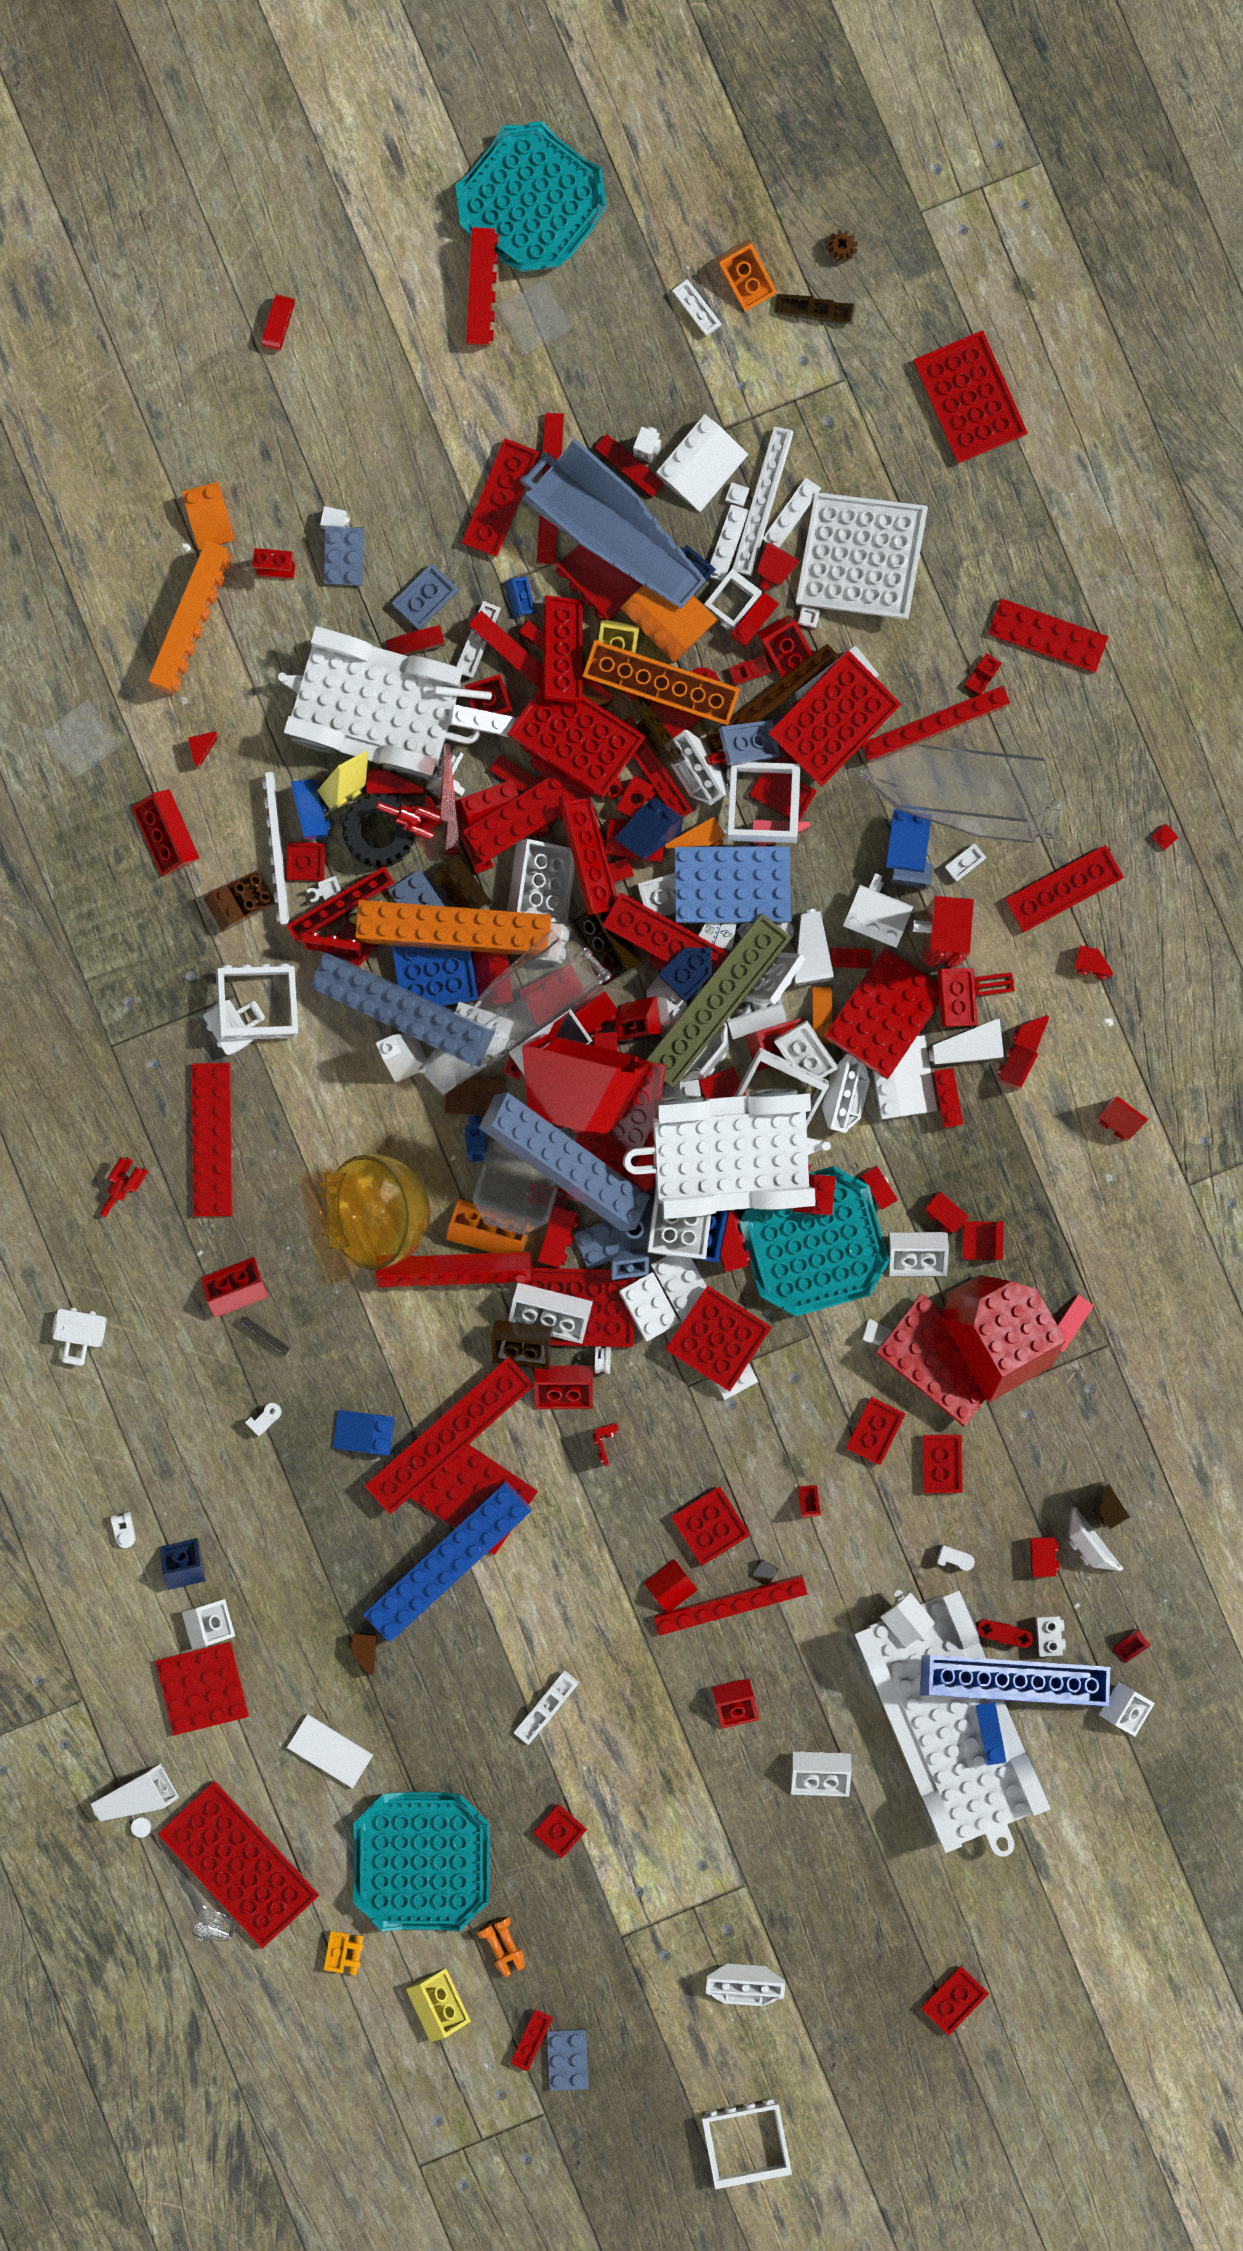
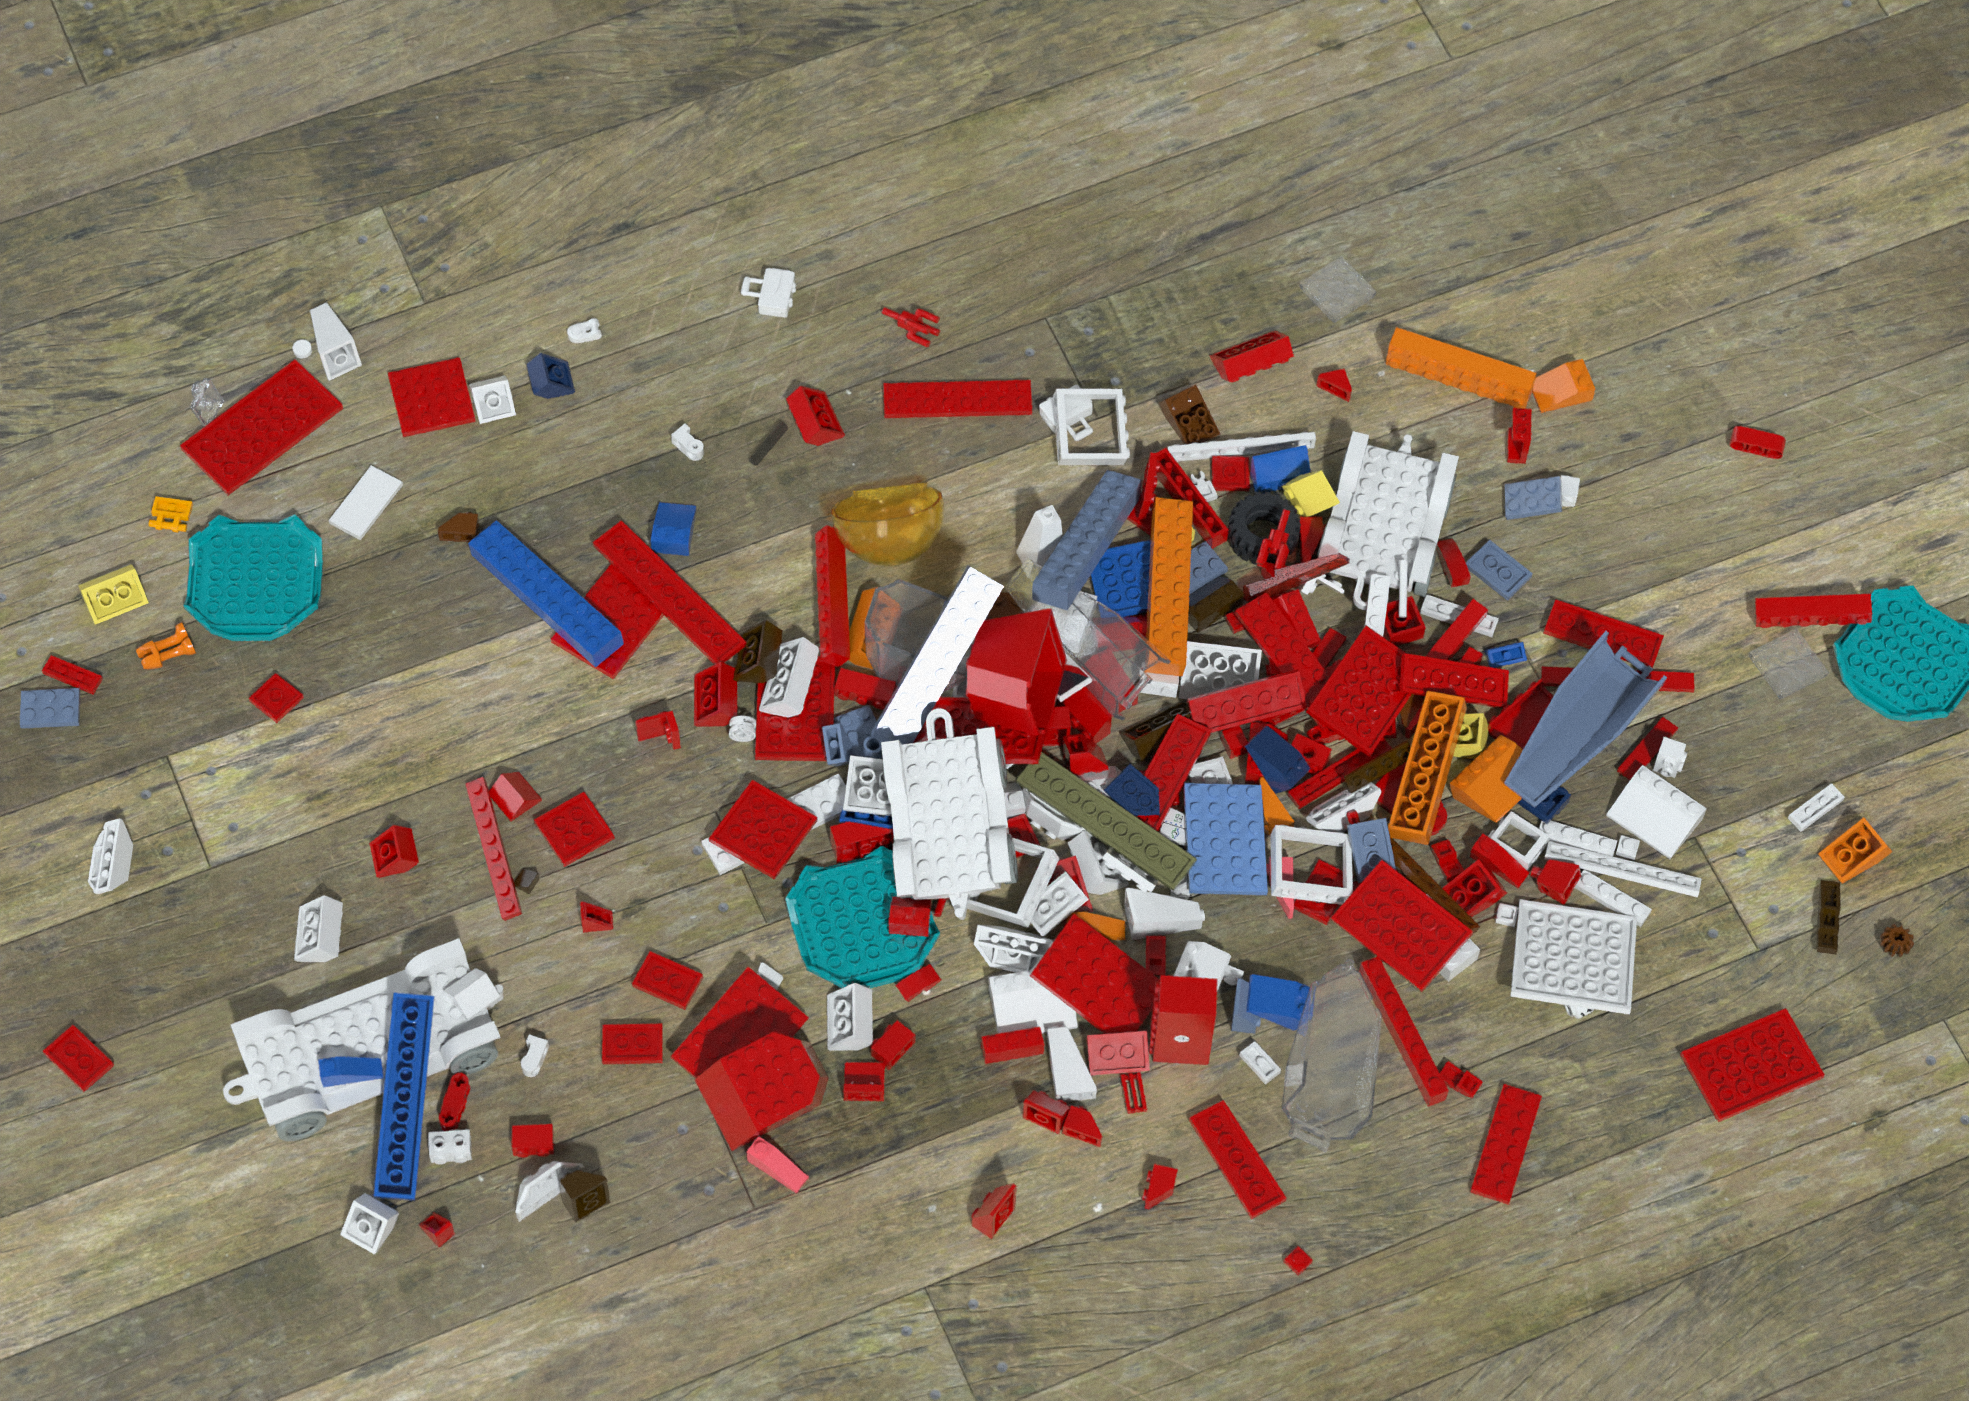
camera: 85 degrees right, 25 degrees down
(546, 1707) = (398, 685): white slope -> none
(649, 1306) = (796, 769): white plate -> none

